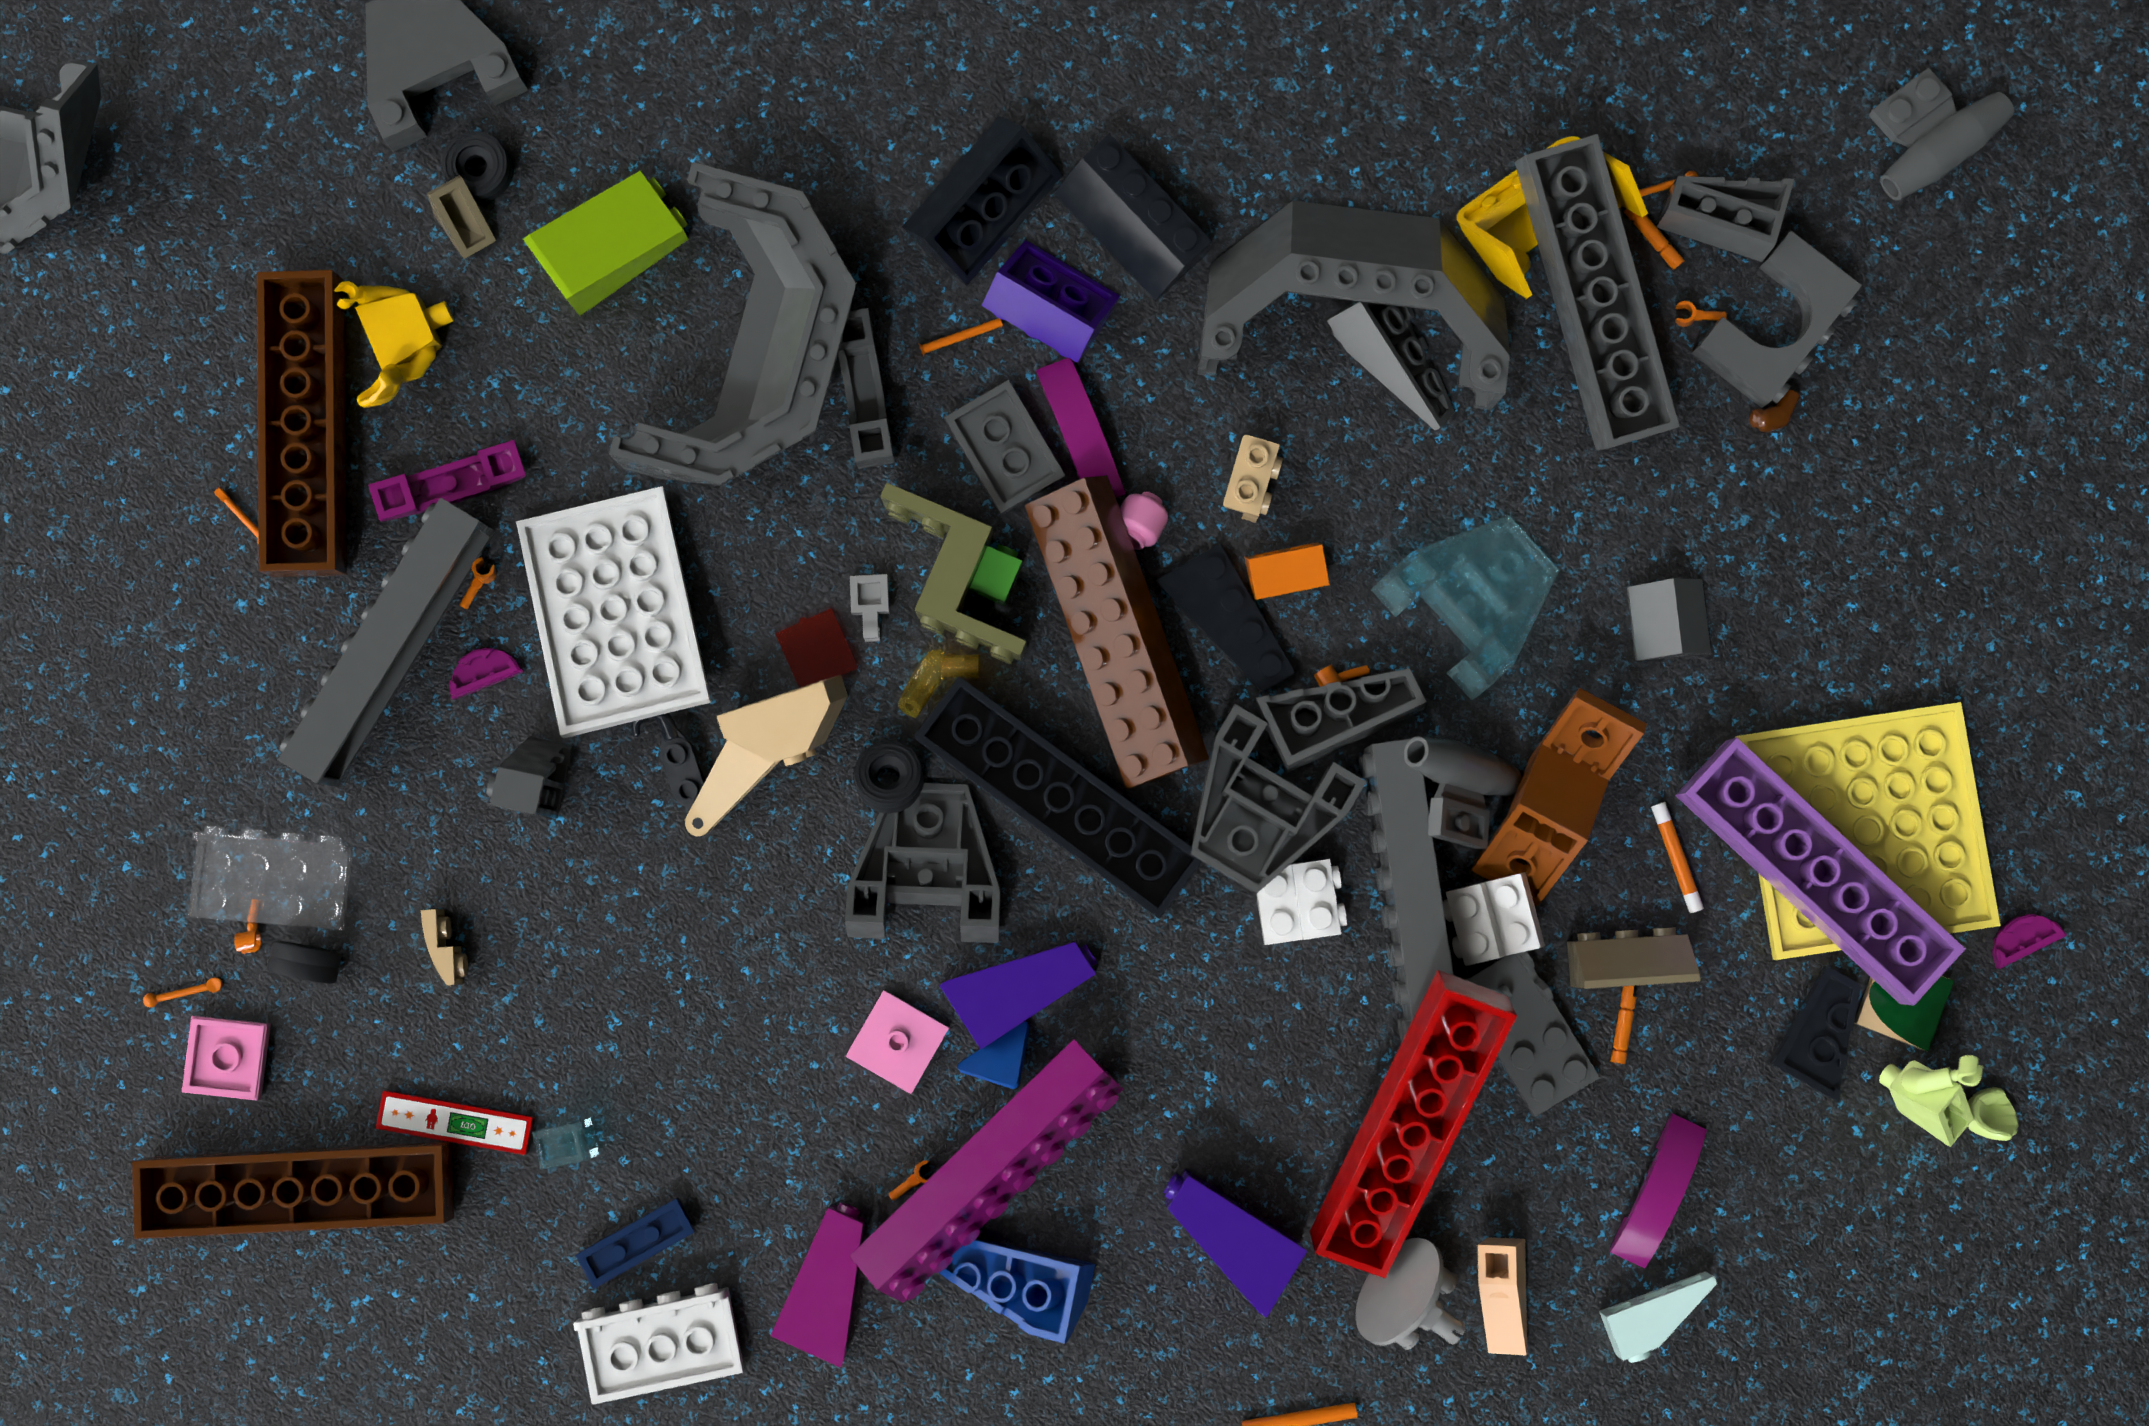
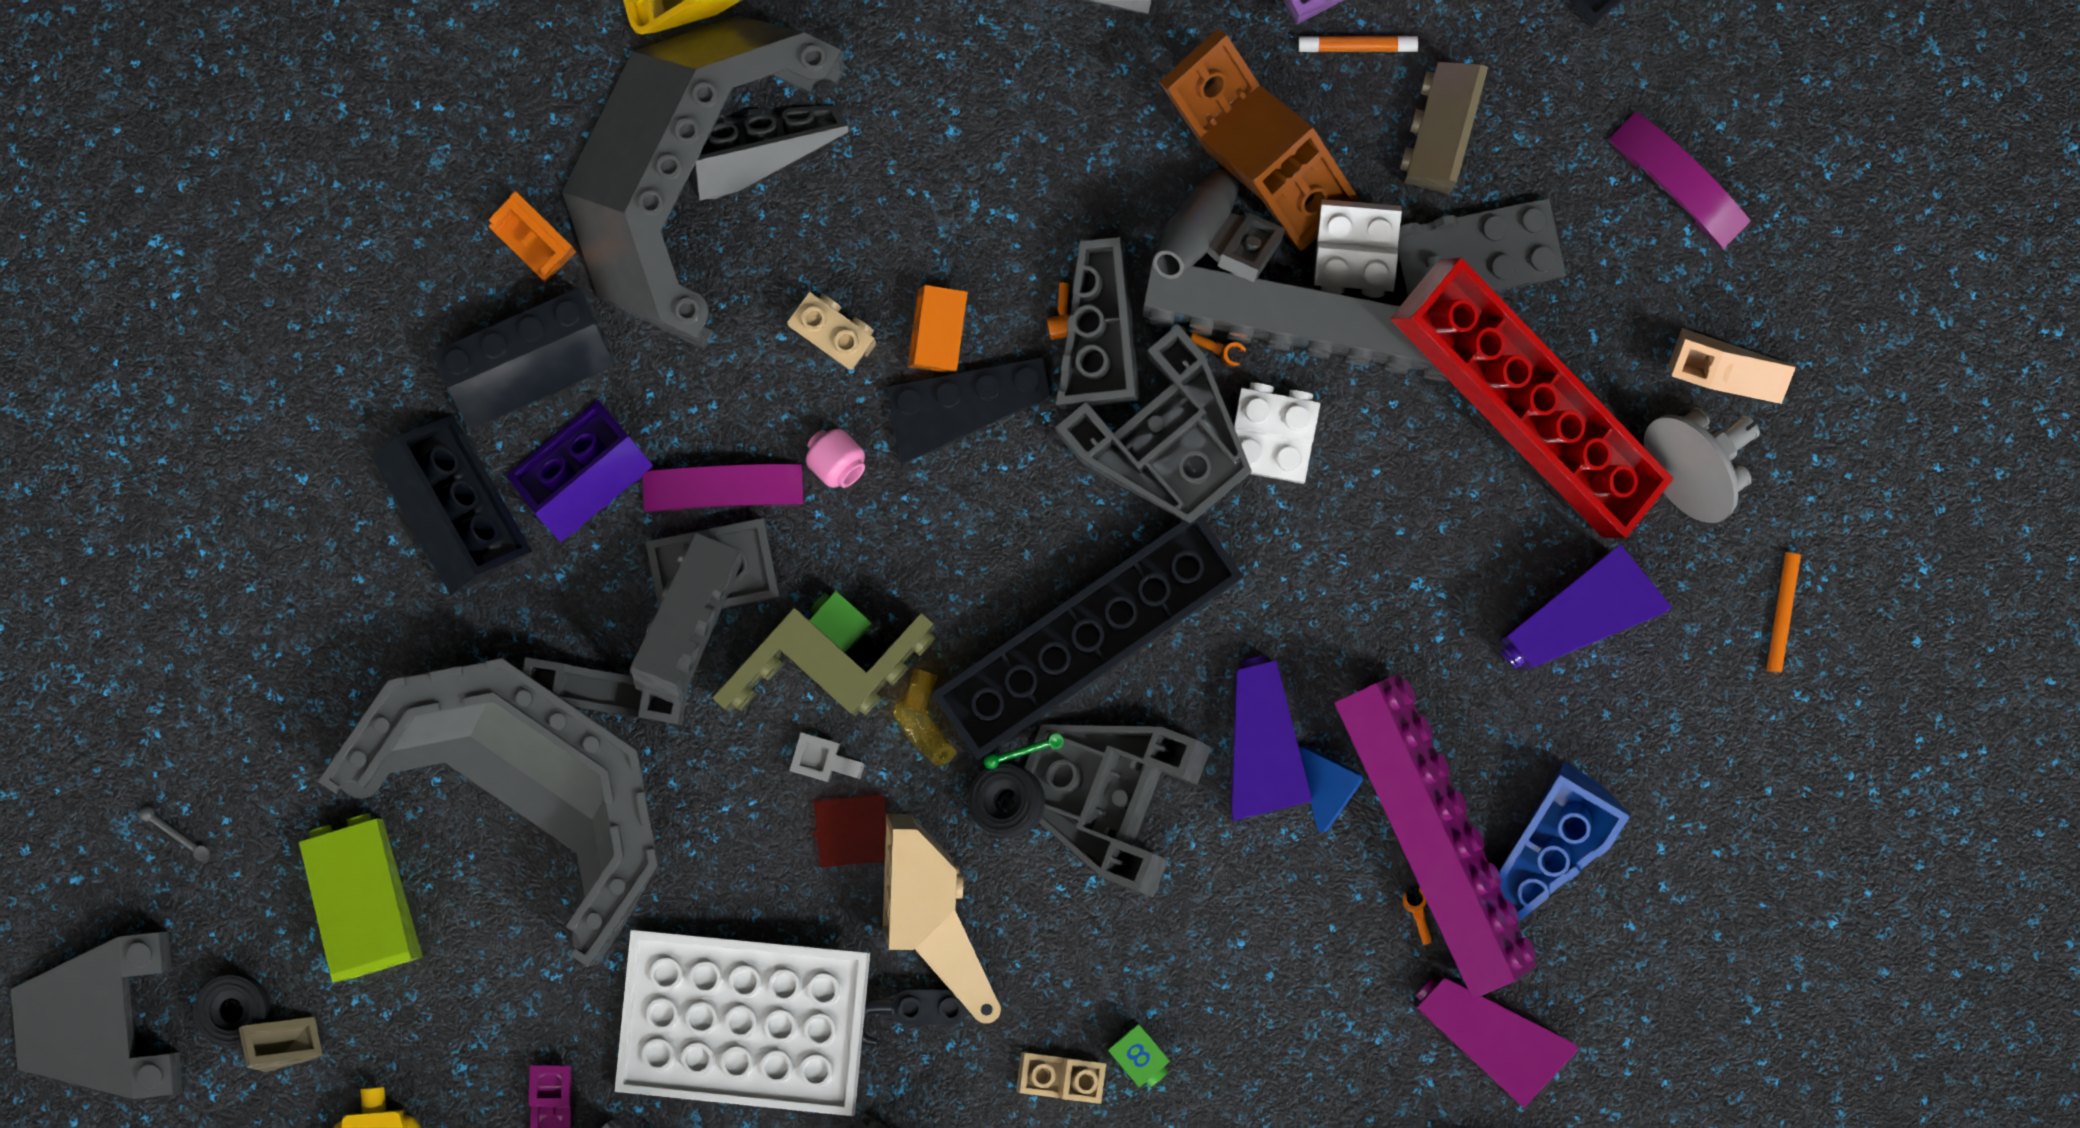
camera: 65 degrees left, 0 degrees up
(605, 93) = (200, 852): none -> dark grey hinge
(660, 910) = (1061, 1077): none -> tan slope
(701, 973) = (1140, 1057): none -> bright green brick
(897, 1042) = (1275, 883): bright pink plate -> none
(949, 435) = (685, 618): none -> dark grey wedge
(956, 800) = (1053, 740): none -> green hinge
(959, 336) = (582, 575): orange piece -> none
(1116, 631) = (940, 520): reddish brown brick -> none
(1243, 187) = (531, 237): none -> orange hinge
(1358, 825) = (1218, 348): none -> orange hand
(1483, 588) = (1026, 138): clear light blue wedge -> none
(1623, 1025) = (1506, 156): orange wheel -> none
(1652, 1317) = (1801, 234): light aqua slope -> none

